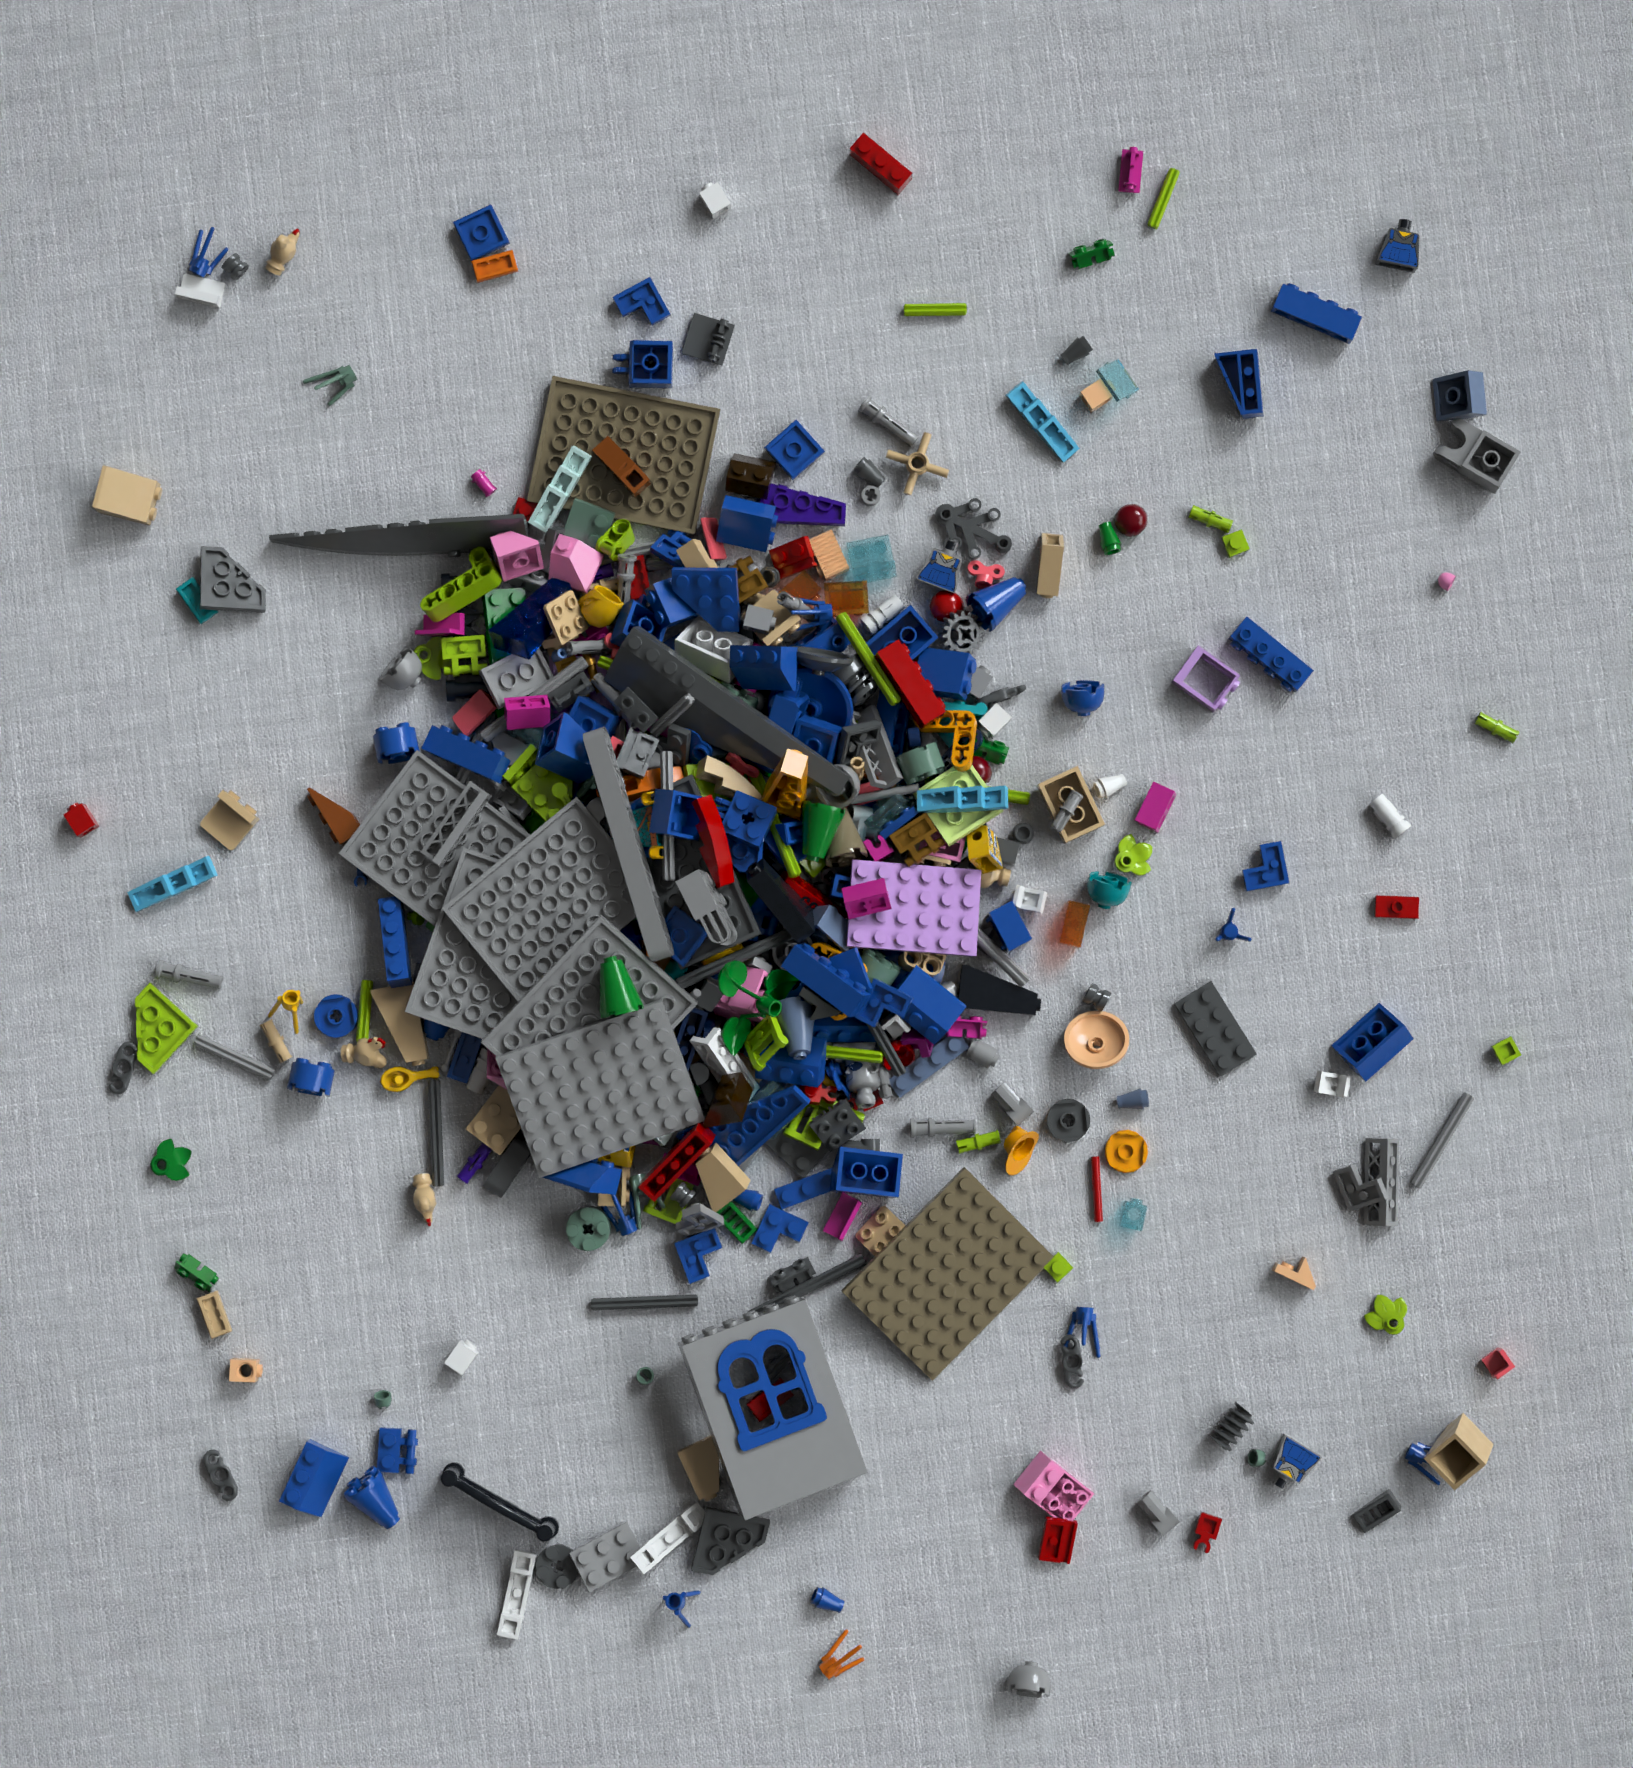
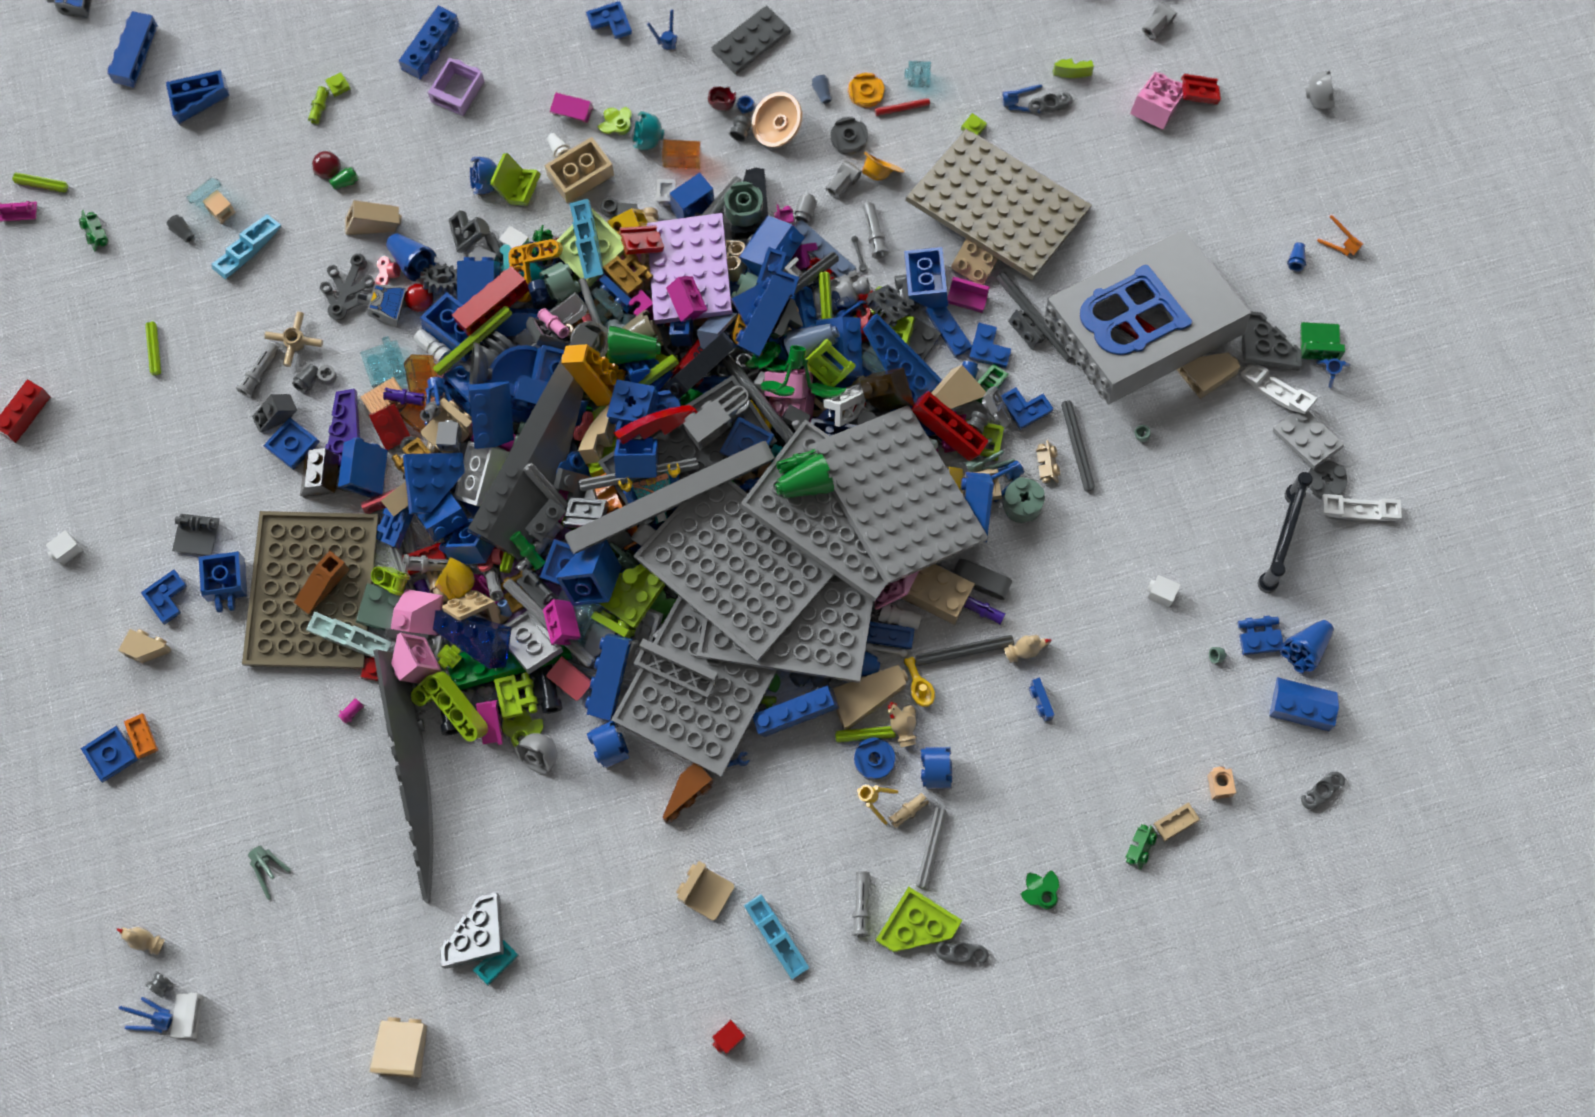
camera: 100 degrees left, 15 degrees down
(357, 1202) = (1044, 707): none -> blue plate
(515, 591) = (449, 656): none -> lime gear
(590, 273) = (143, 648): none -> tan slope
(608, 686) = (527, 550): none -> green pin
(639, 1267) = (1050, 469): none -> tan hinge
(643, 985) = (792, 462): none -> green pin
(720, 1600) = (1320, 341): none -> green bracket
(784, 976) = (770, 351): none -> green plate
(819, 576) = (404, 396): none -> dark purple pin
(833, 434) = (274, 411): none -> dark grey slope
(867, 748) = (553, 323): none -> bright pink pin
(900, 1106) = (862, 267): none -> dark grey hinge
(951, 859) = (641, 240): none -> red plate
(978, 1141) = (881, 201): lime pin -> none
(994, 973) = (743, 204): none -> sand green brick
(1012, 665) = (465, 232): none -> dark grey brick
(1066, 810) = (584, 164): light grey axle -> none
(1068, 731) = (513, 182): none -> lime bracket
(1111, 1390) = (1067, 69): none -> lime slope
(1135, 1007) = (745, 100): none -> blue plate
(1139, 981) = (721, 98): none -> dark red hair

